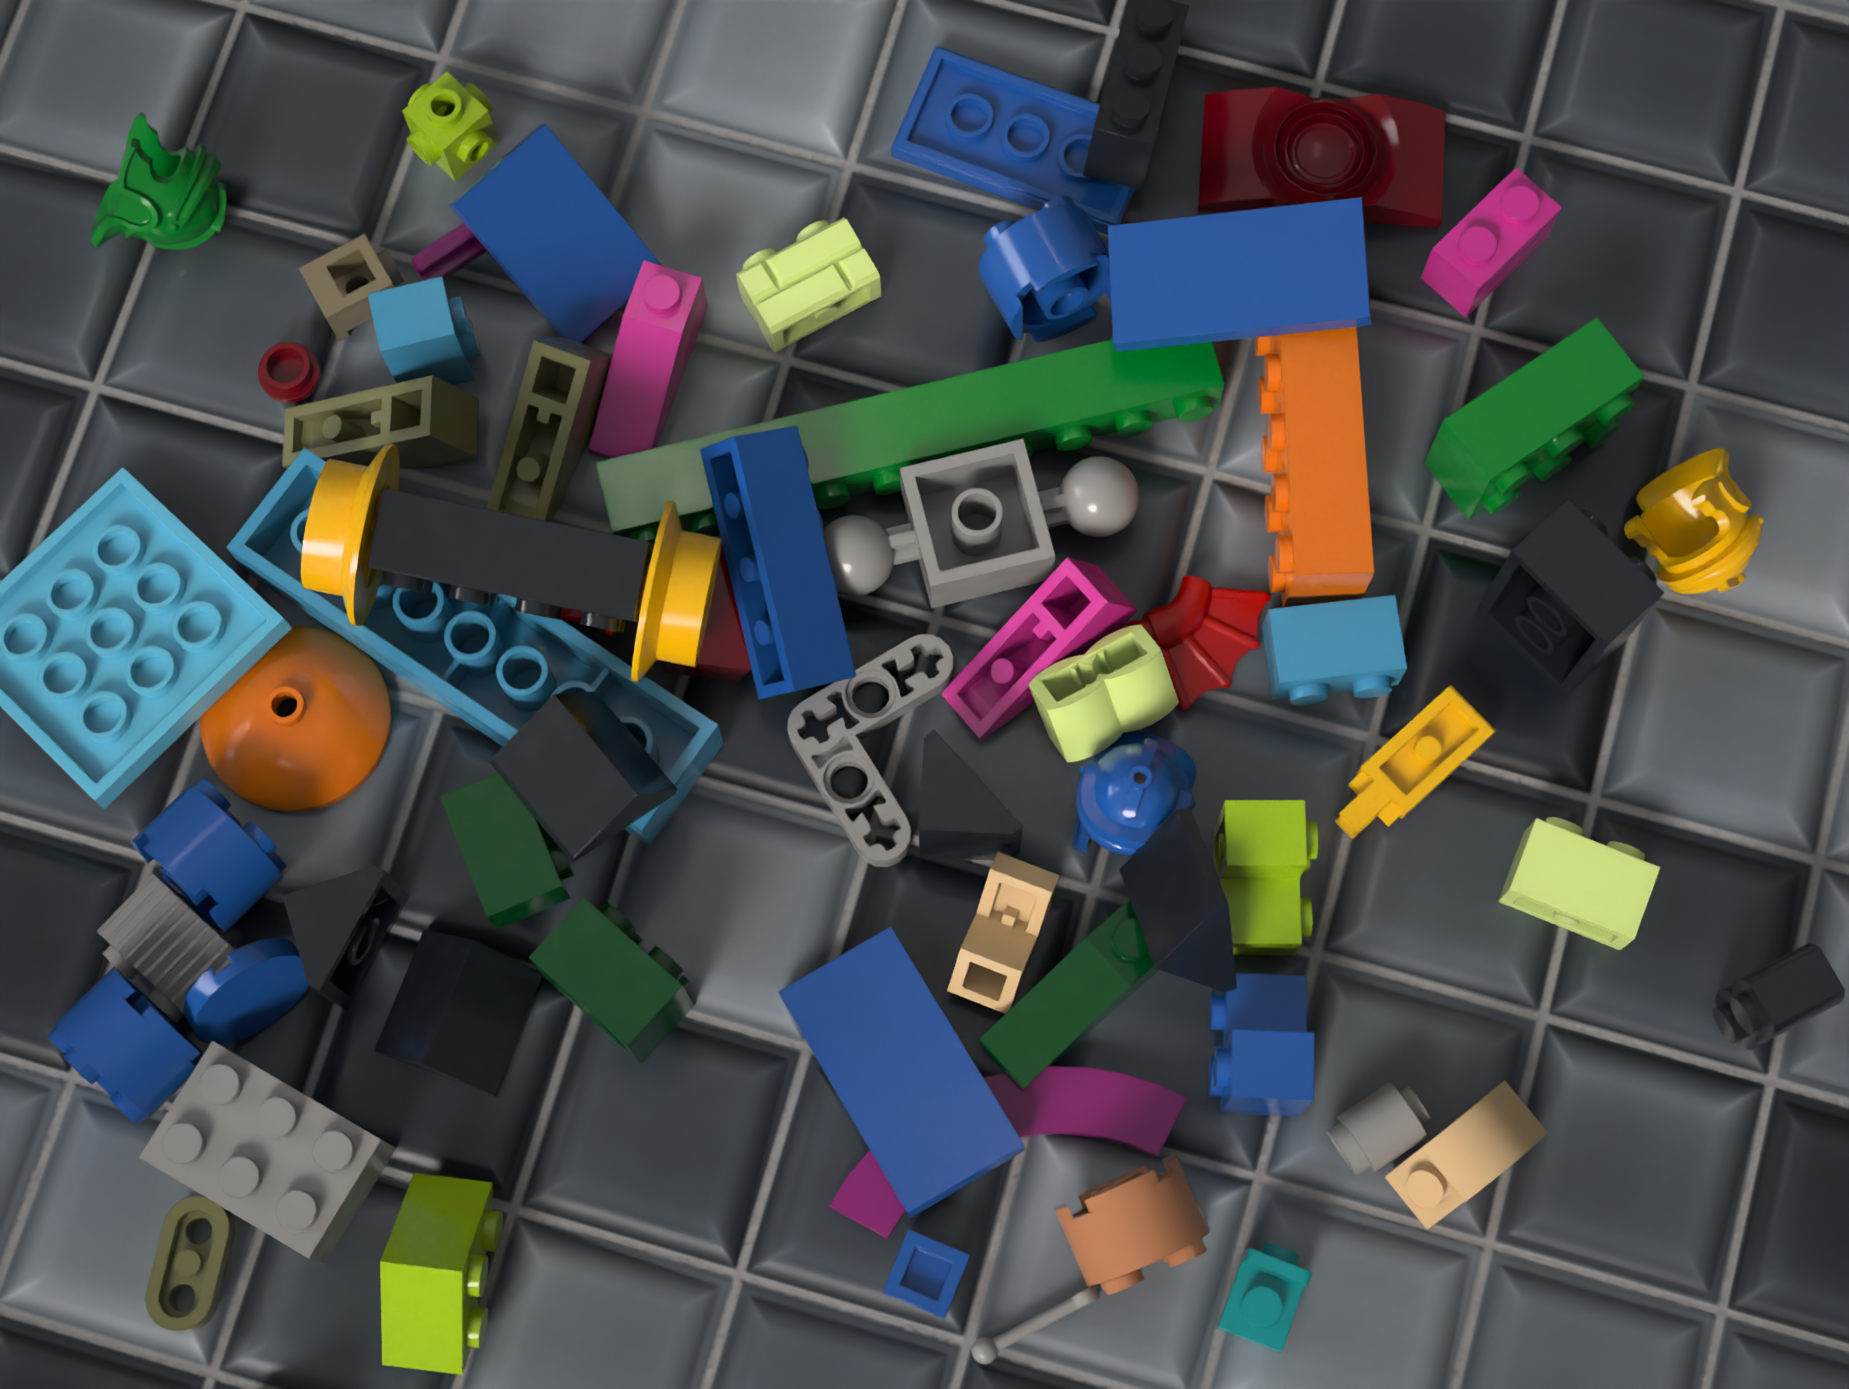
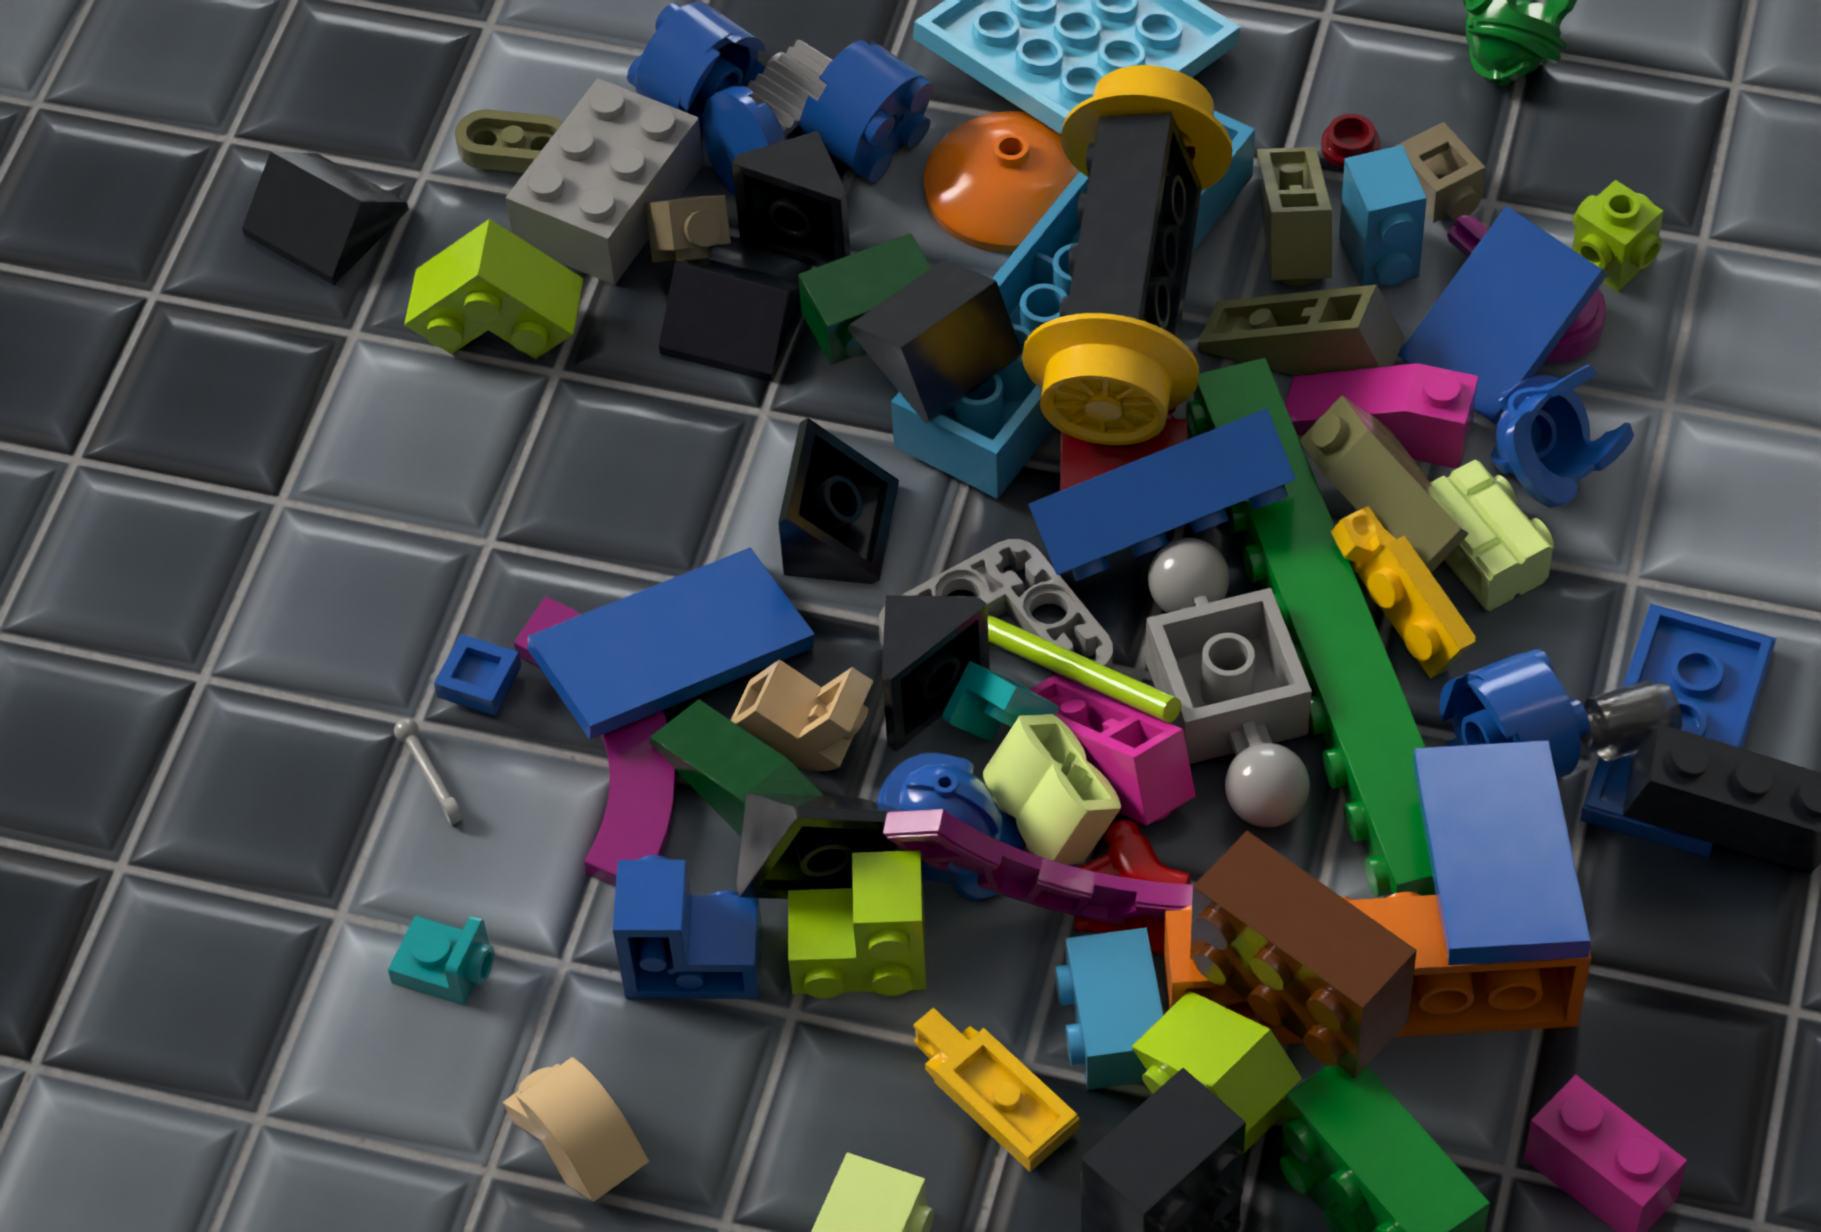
camera: 90 degrees right, 20 degrees down
(375, 1048) = (687, 227): none -> dark tan brick
(614, 981) = (749, 399): dark green brick -> none
(714, 216) = (1547, 437): none -> blue helmet
(740, 903) = (834, 510): none -> black slope
(771, 357) = (1377, 472): none -> olive slope
(888, 353) = (1404, 591): none -> yellow hinge
(964, 662) = (1083, 670): none -> lime bar
(1000, 730) = (988, 699): none -> teal bracket
(1042, 166) = (1627, 717): none -> clear smoke brick
(1134, 1225) = (509, 823): nougat brick -> none
(1214, 749) = (1029, 876): none -> magenta tile
(1303, 149) = (1698, 1013): dark red slope -> none
(1379, 1128) = (606, 1048): light grey brick -> none
(1394, 440) = (1301, 954): none -> reddish brown brick
(1445, 548) = (1226, 1054): none -> lime brick

